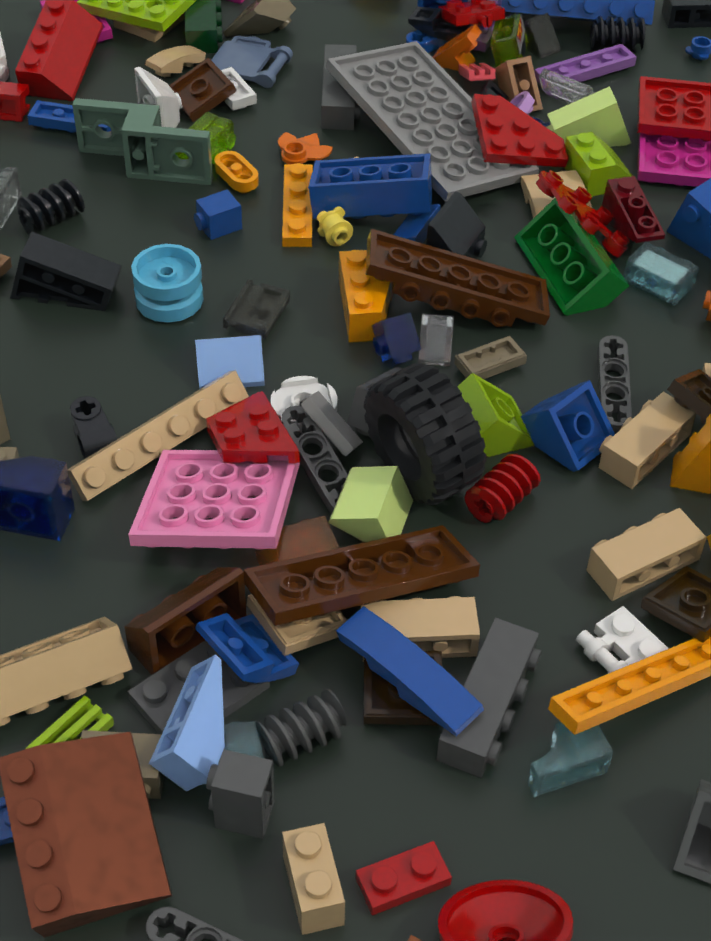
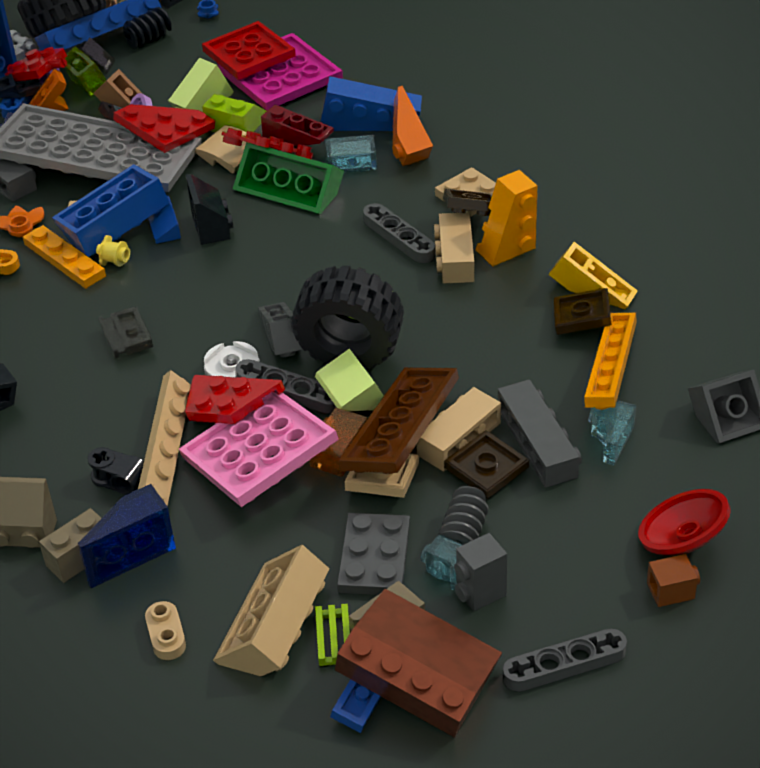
camera: 40 degrees left, 5 degrees down
(167, 282) = (48, 353): medium azure wheel -> none
(170, 627) = (325, 514): reddish brown slope -> none
(194, 729) = (412, 561): light blue slope -> none
(218, 214) = (20, 293): blue brick -> none
(228, 354) = (145, 372): light blue slope -> none
(247, 648) = (381, 505): blue slope -> none
(313, 878) = (564, 583): tan brick -> none
(331, 423) = (270, 359): light grey tile -> none
(363, 296) = (186, 275): light orange wedge -> none
(396, 338) = (244, 287): clear blue brick -> none
(403, 877) = (602, 551): red plate -> none
(411, 671) = (487, 443): blue slope -> none
(436, 339) = (263, 274): clear slope -> none
(456, 281) = (242, 231): reddish brown plate -> none
(477, 73) = (83, 102): coral tile -> none
(491, 358) = (311, 261): dark tan plate -> none
(502, 488) = (415, 327): red piece -> none
(562, 87) = (163, 78): clear slope -> none
(569, 426) = (407, 267): blue slope -> none
(593, 64) = (150, 59): medium lavender plate -> none
(623, 636) = (570, 359): white plate -> none
(645, 553) = (526, 305): tan brick -> none

